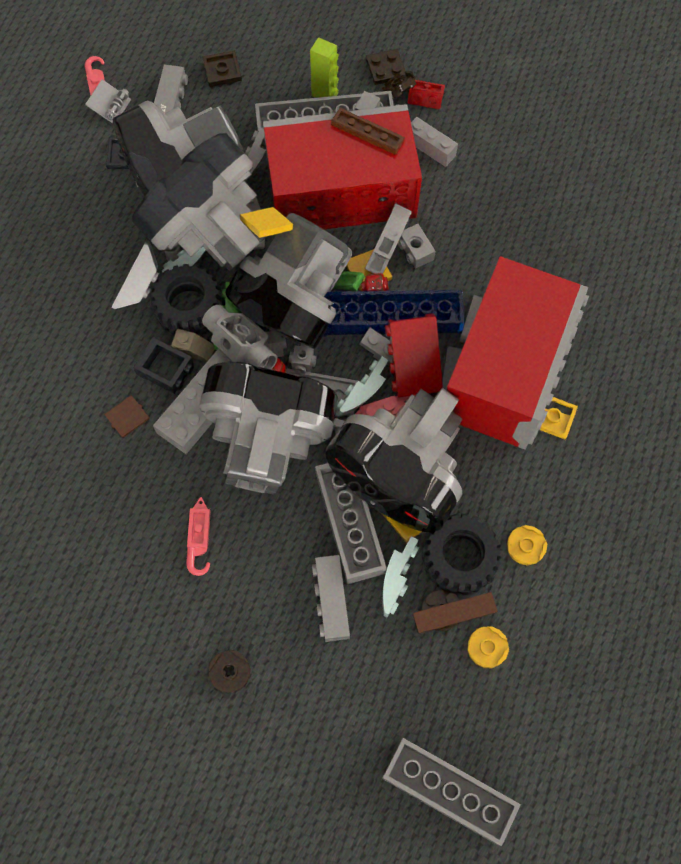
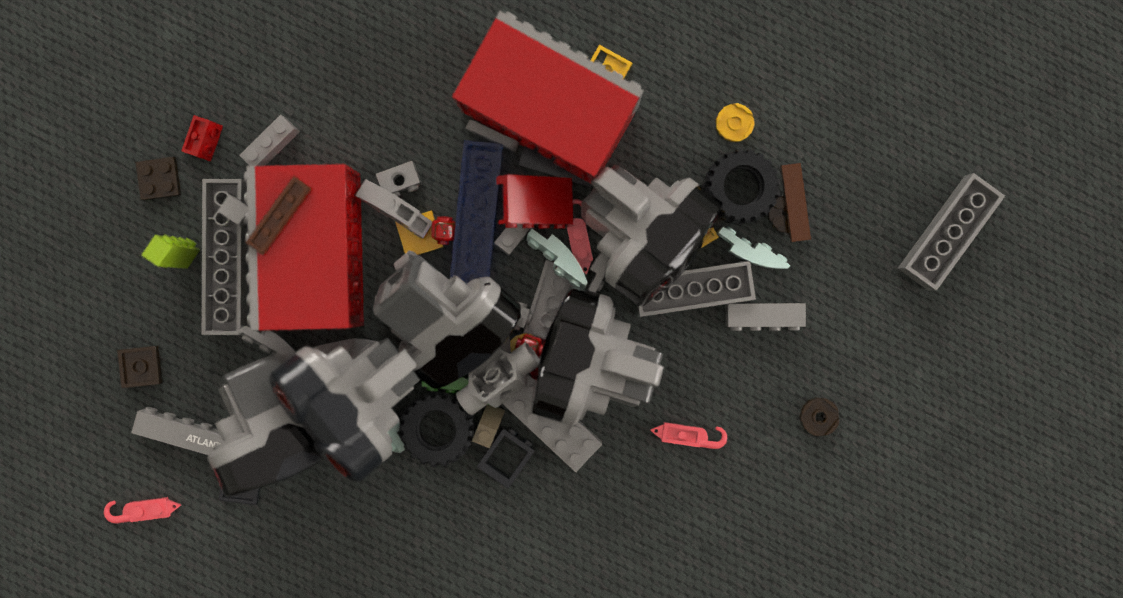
camera: 85 degrees left, 20 degrees up
(108, 100) = (172, 498): light grey hinge -> none
(127, 416) = (554, 497): reddish brown piece -> none
(138, 279) = (412, 478): wedge -> none
(266, 222) = (384, 339): yellow tile -> none
(349, 281) = (436, 254): bright green tile -> none
(400, 83) = (189, 167): dark brown plate -> none
(485, 653) = (826, 182): yellow tile -> none

